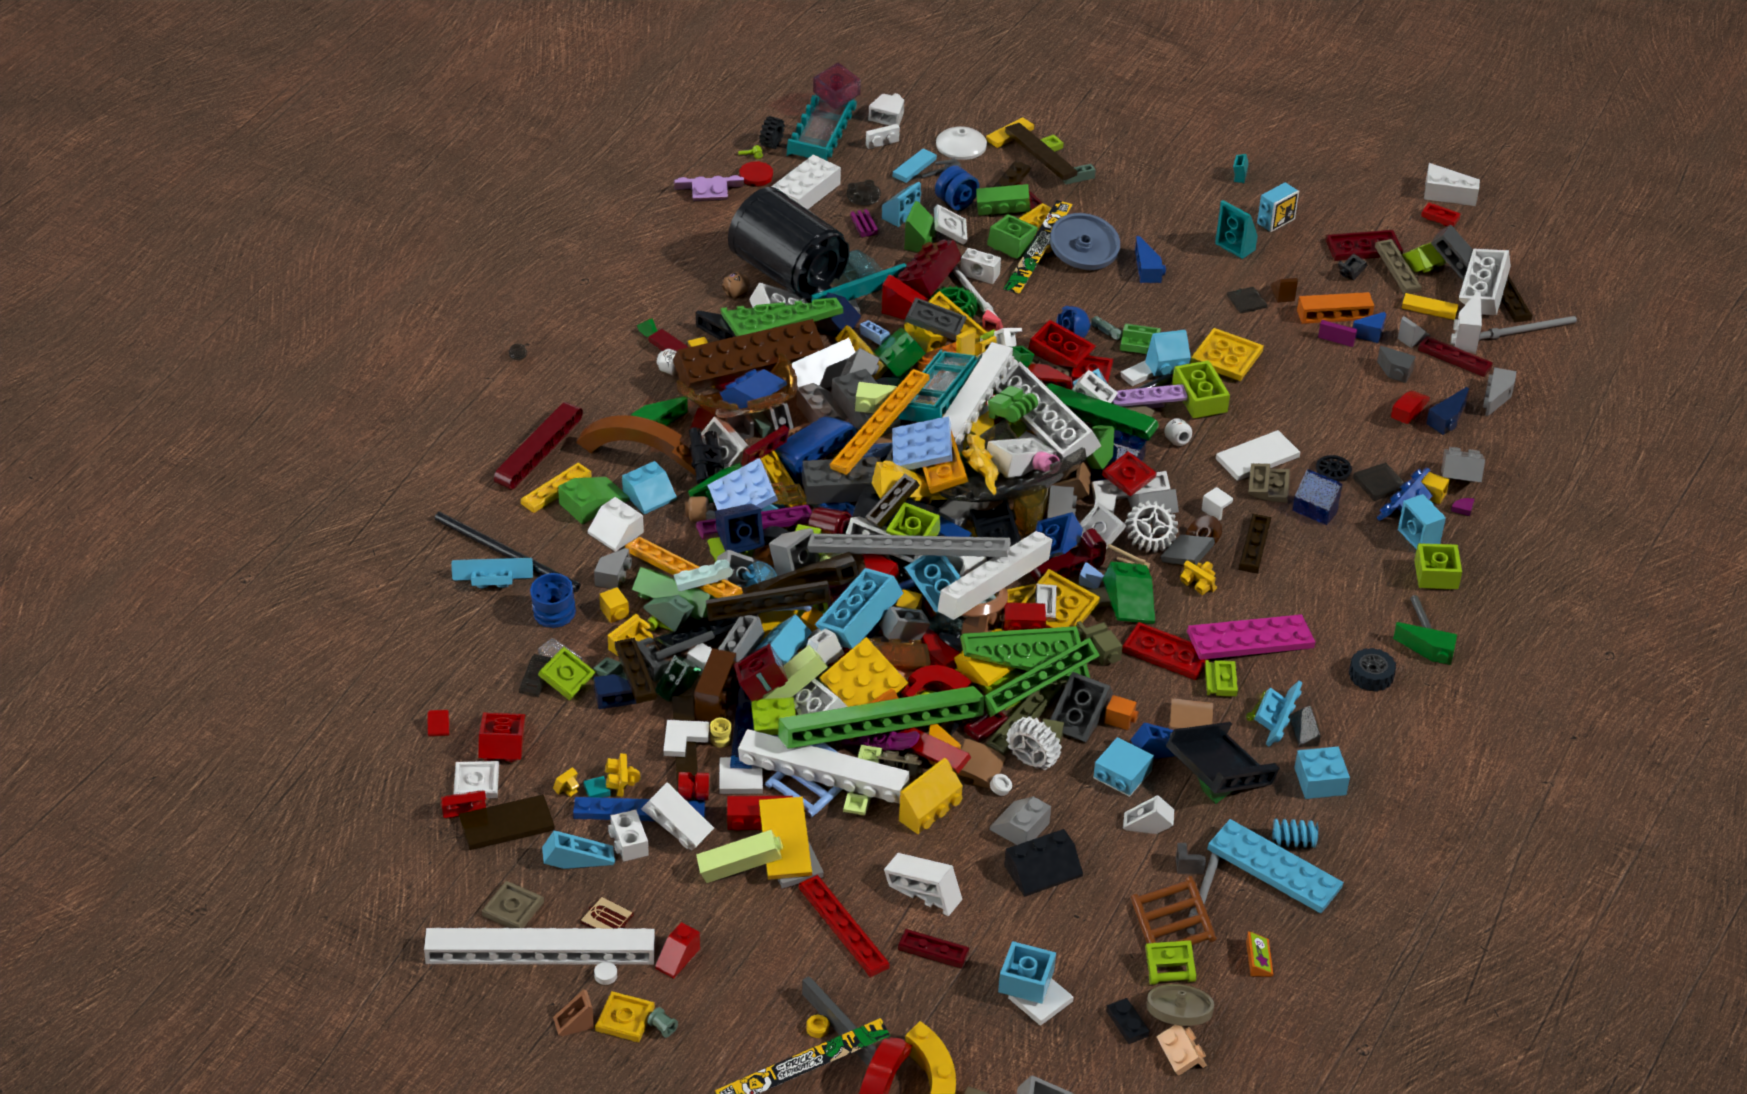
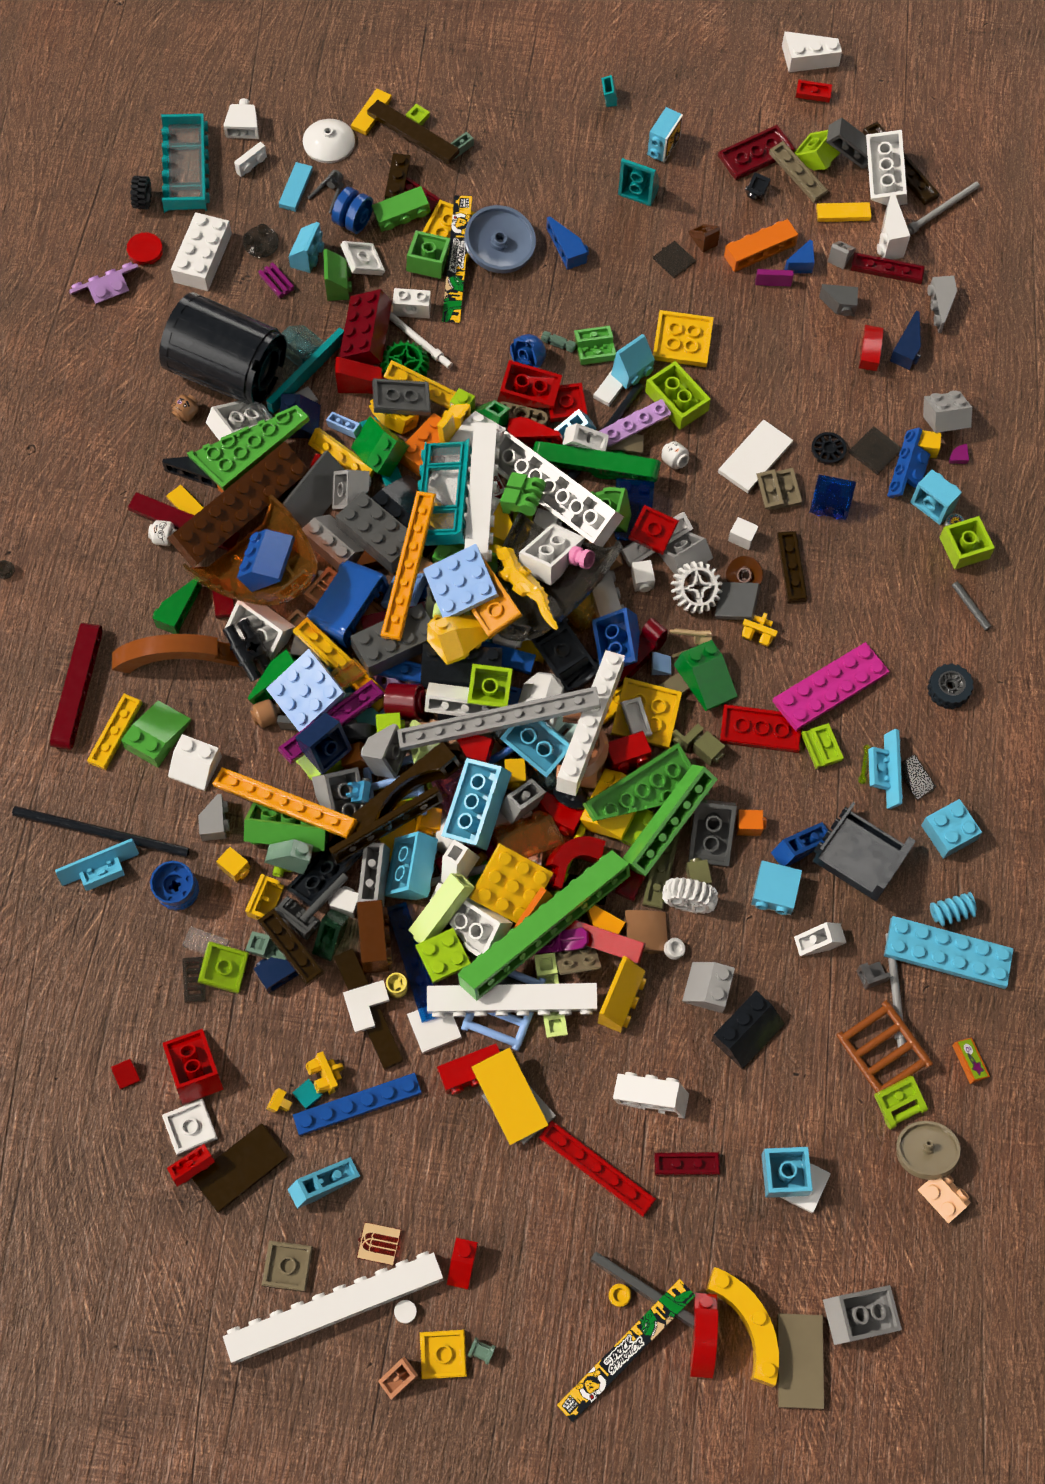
camera: 20 degrees left, 25 degrees up
(628, 835) = (366, 1140): white brick -> none
(647, 327) = (121, 494): green tile -> none
(648, 487) = (206, 703): medium azure slope -> none
(677, 817) = (400, 1111): white wedge -> none
(694, 786) = (408, 1066): red wheel -> none
(703, 575) = (311, 814): light aqua hinge -> none
(739, 856) = (477, 1136): yellowish green brick -> none
(756, 150) = (132, 218): lime hand -> none
(760, 672) = (415, 918): dark red container -> none
(763, 571) = (368, 789): clear light blue tile -> none
(765, 445) = (305, 627): dark red tile -> none
(836, 85) = (184, 114): clear pink brick -> none
(871, 396) = (388, 533): yellowish green slope -> none
(892, 501) = (460, 666): dark brown plate -> none
(991, 321) = (449, 374): coral slope -> none
(1006, 336) = (477, 397): white panel -> none
(1104, 523) = (650, 602): white tile -> none
(1127, 1021) = (885, 1179): black plate -> none
(1190, 713) = (812, 802): medium nougat slope -> none
(1429, 643) = (991, 637): green slope -> none

